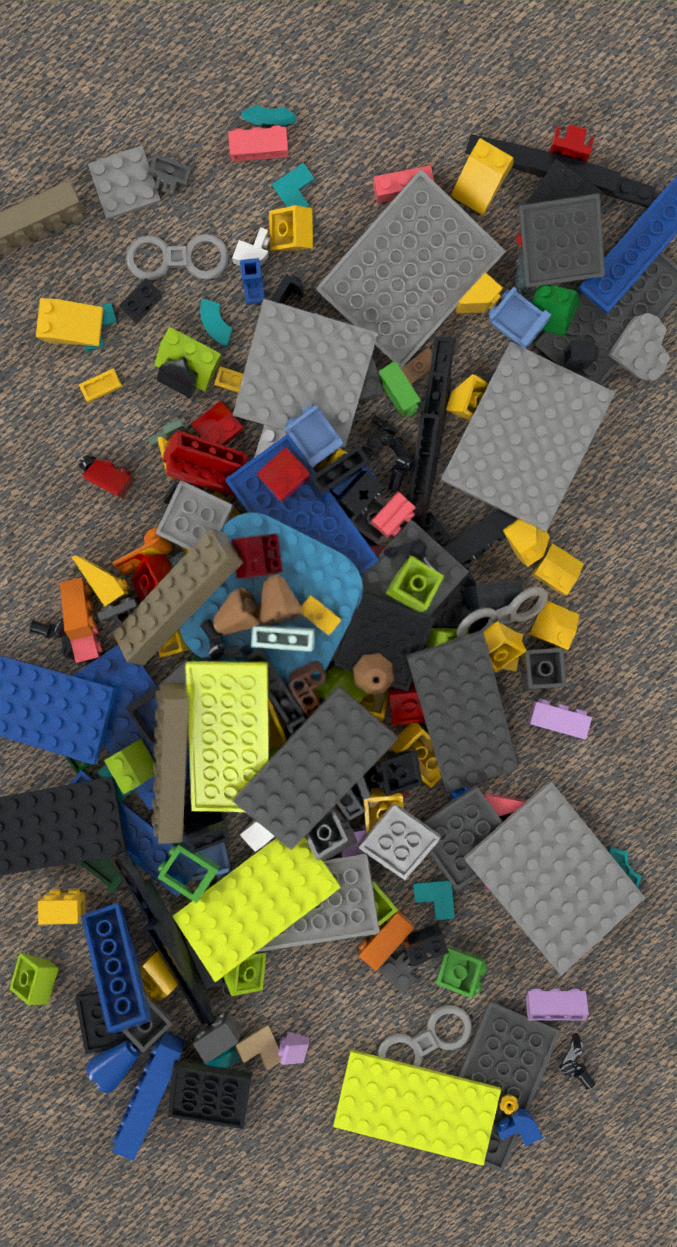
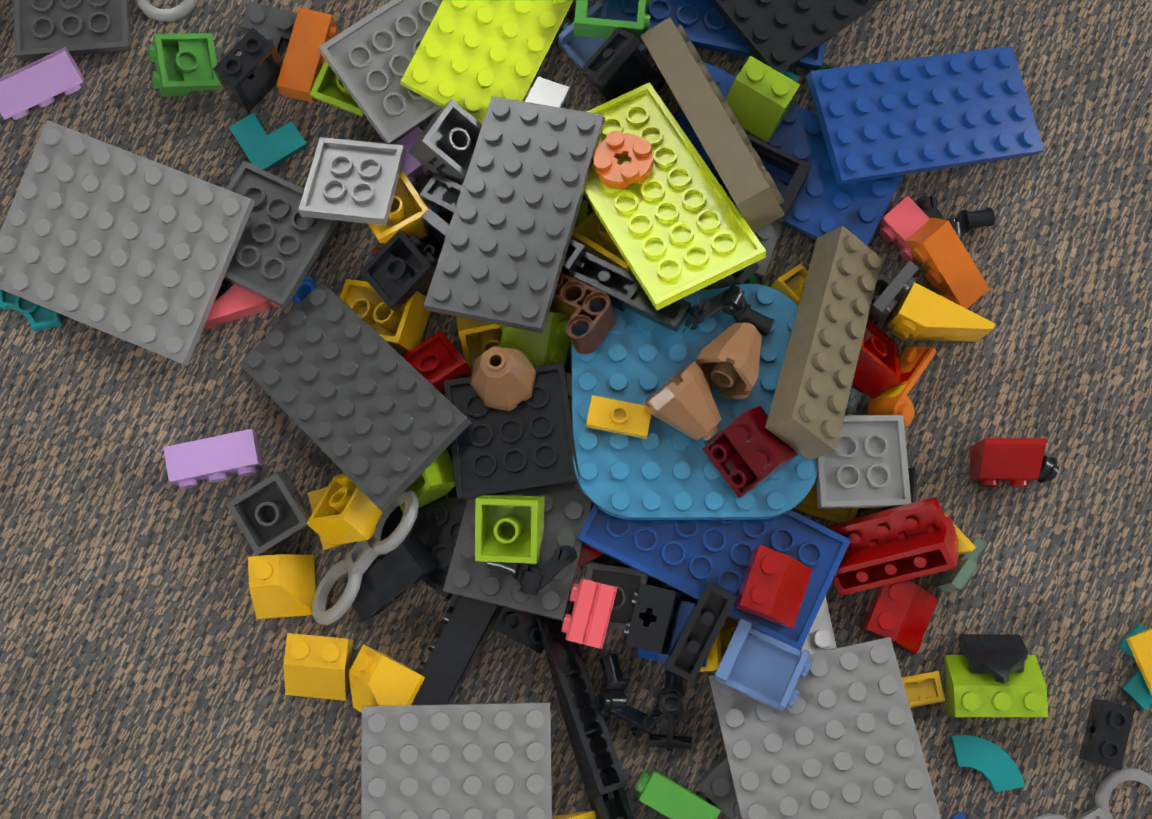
camera: 150 degrees right, 10 degrees down
(100, 385) = (1091, 585): yellow plate -> none
(236, 777) = (619, 146): none -> orange plate
(283, 637) = (652, 359): light aqua brick -> none

